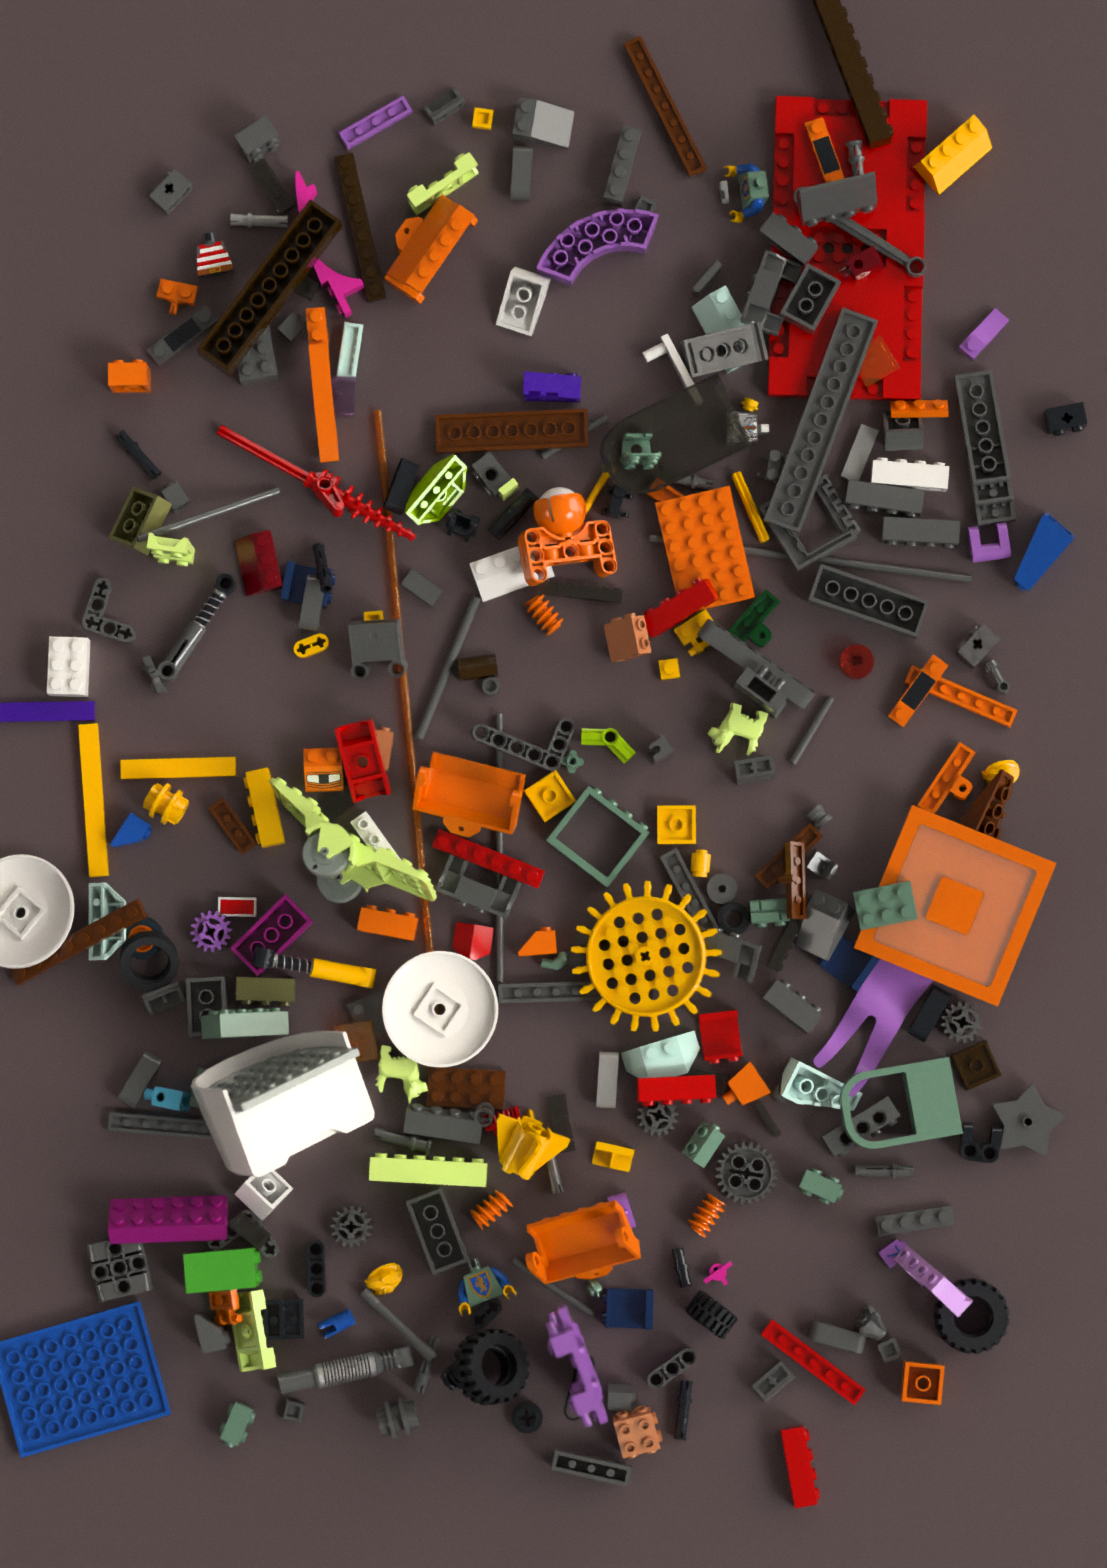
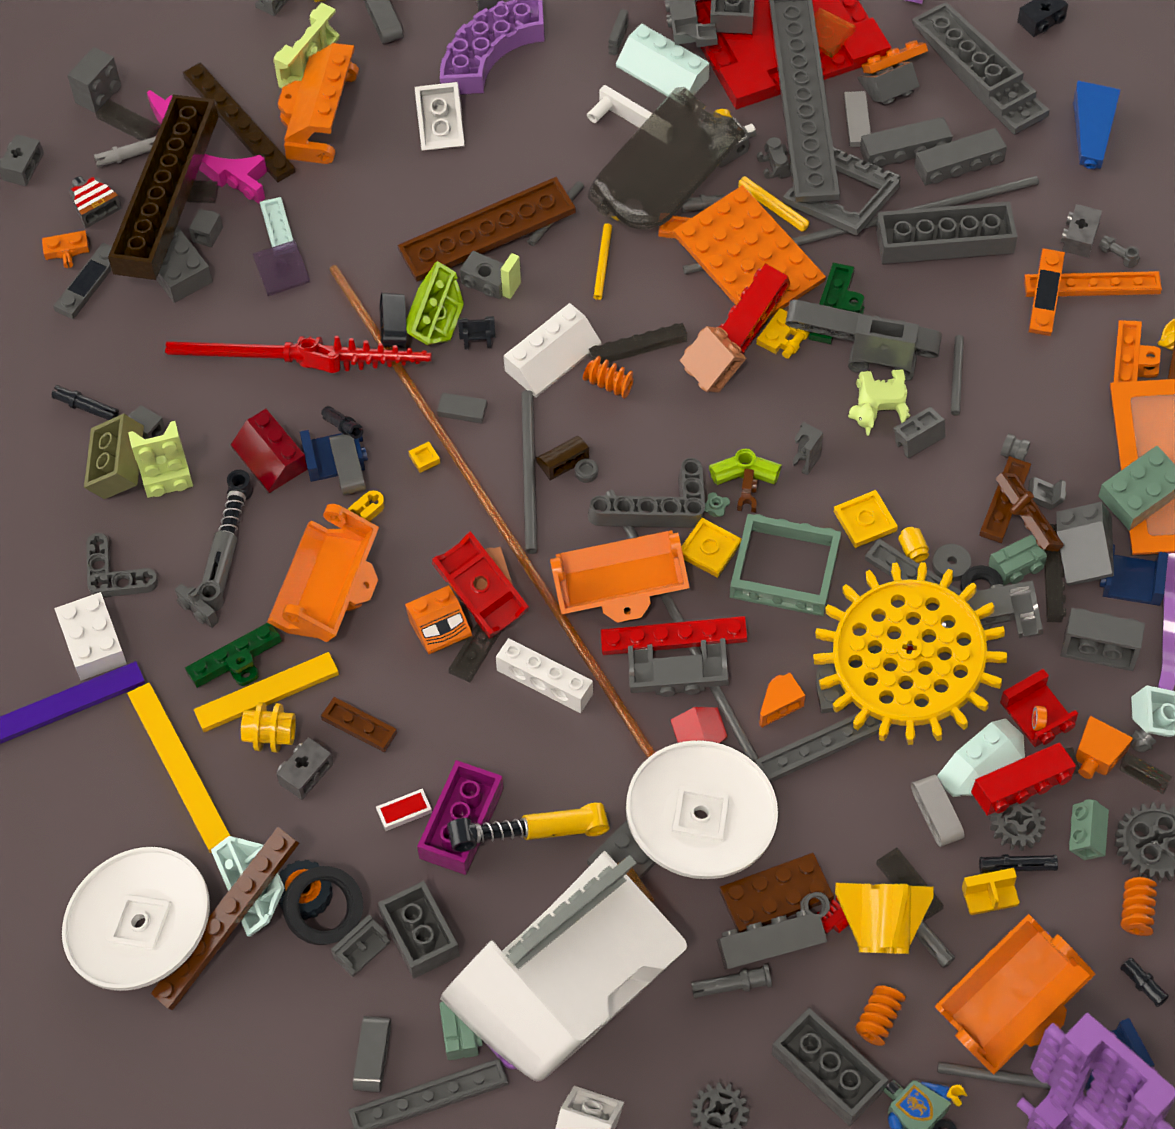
camera: 25 degrees left, 25 degrees down
(129, 377) = (44, 330): orange brick -> none
(132, 832) = (240, 778): blue slope -> none
(166, 730) = (235, 657): none -> dark green plate
(173, 1100) = (418, 1056): medium azure torso -> none
(190, 845) = (304, 768): none -> flat silver brick
(209, 514) = (200, 413): dark grey piece -> none
(218, 927) = (391, 836): medium lavender gear -> none
(244, 1023) = (474, 918): brick -> none
(256, 698) = (327, 576): none -> orange piece
(265, 808) = (388, 688): yellow brick -> none
(265, 990) = (481, 883): olive brick -> none
(321, 384) = (244, 226): orange slope -> none
(341, 860) = (512, 672): yellowish green piece -> none
(375, 122) = (211, 33): medium lavender tile -> none
(376, 642) = (437, 467): dark grey piece -> none
(387, 923) = (592, 751): orange brick -> none
(402, 1069) = (690, 901): yellowish green animal -> none
(428, 1171) = (781, 999): yellowish green brick -> none
(512, 514) = (526, 301): black axle -> none
(551, 387) = (507, 175): dark purple wedge -> none
(557, 963) = (809, 713): sand green arm -> none
(561, 522) = (588, 295): orange beam -> none
(603, 758) = (748, 487): none -> reddish brown plate
(616, 502) = (633, 250): black piece -> none
(635, 1141) = (1019, 863): none -> black pin
(644, 458) = (632, 189): sand green piece -> none
(669, 669) = (772, 378): yellow plate -> none
(715, 1044) = (1039, 718): none -> orange tile
(724, 350) = (654, 79): dark grey hinge -> none
(856, 651) = (966, 292): clear red piece -> none
(910, 475) = (941, 104): white brick -> none
(990, 551) = (1048, 141): medium lavender connector -> none

